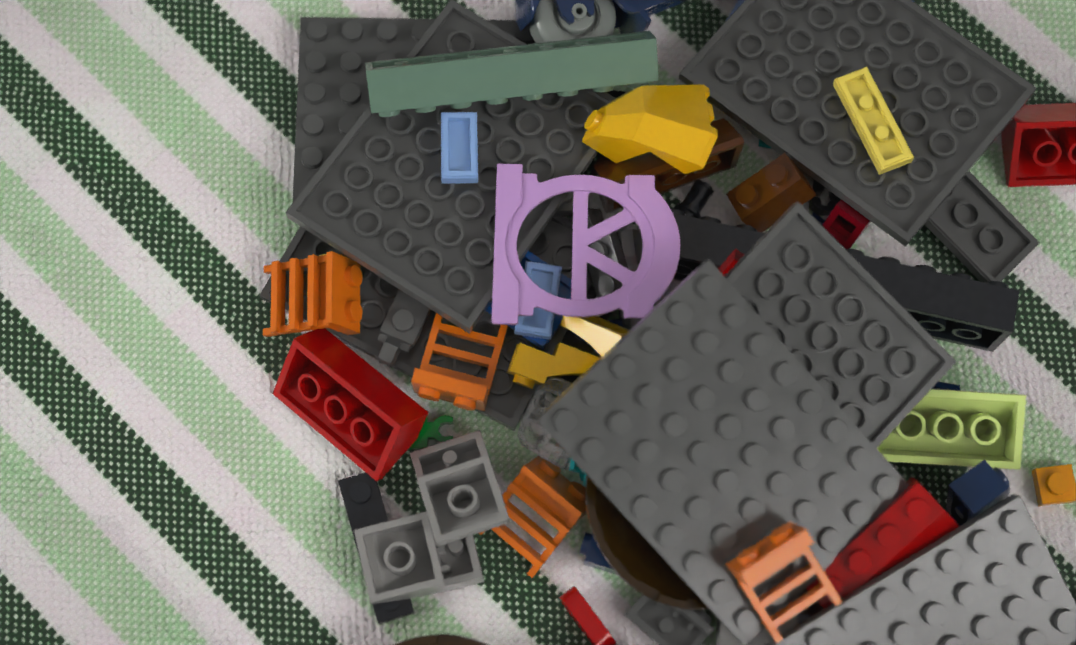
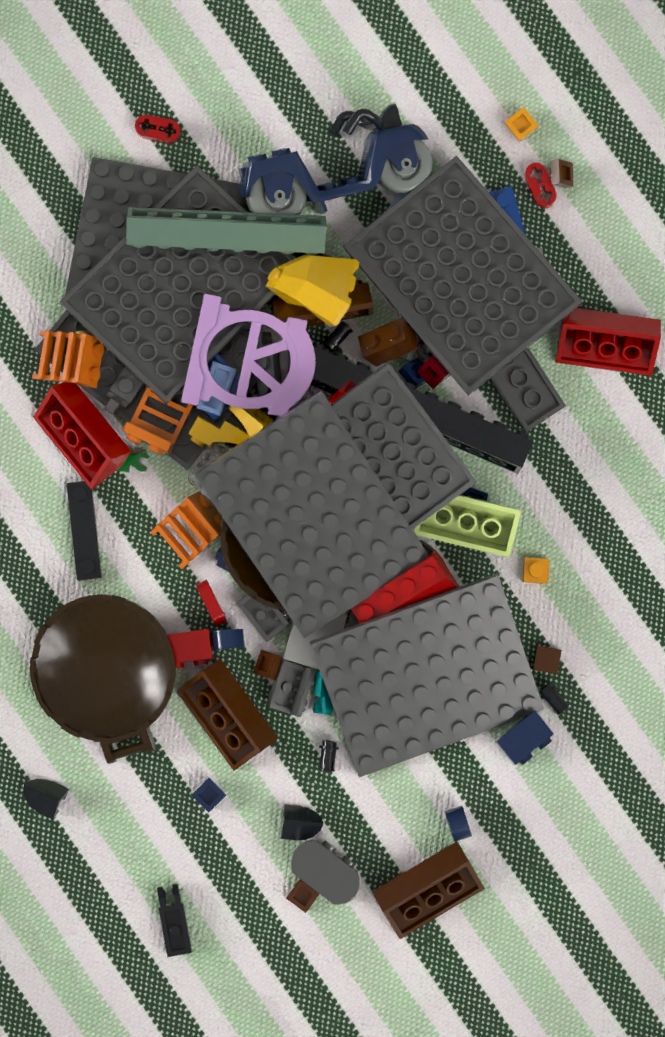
camera: 15 degrees right, 10 degrees up
(405, 563) = (110, 542): light grey slope -> none
(459, 147) = (182, 276): light blue tile -> none
(459, 488) = (143, 503): light grey slope -> none
(769, 557) = (326, 586): orange plate -> none
(873, 120) = (465, 305): light yellow tile -> none
(976, 492) = (476, 566): dark blue brick -> none

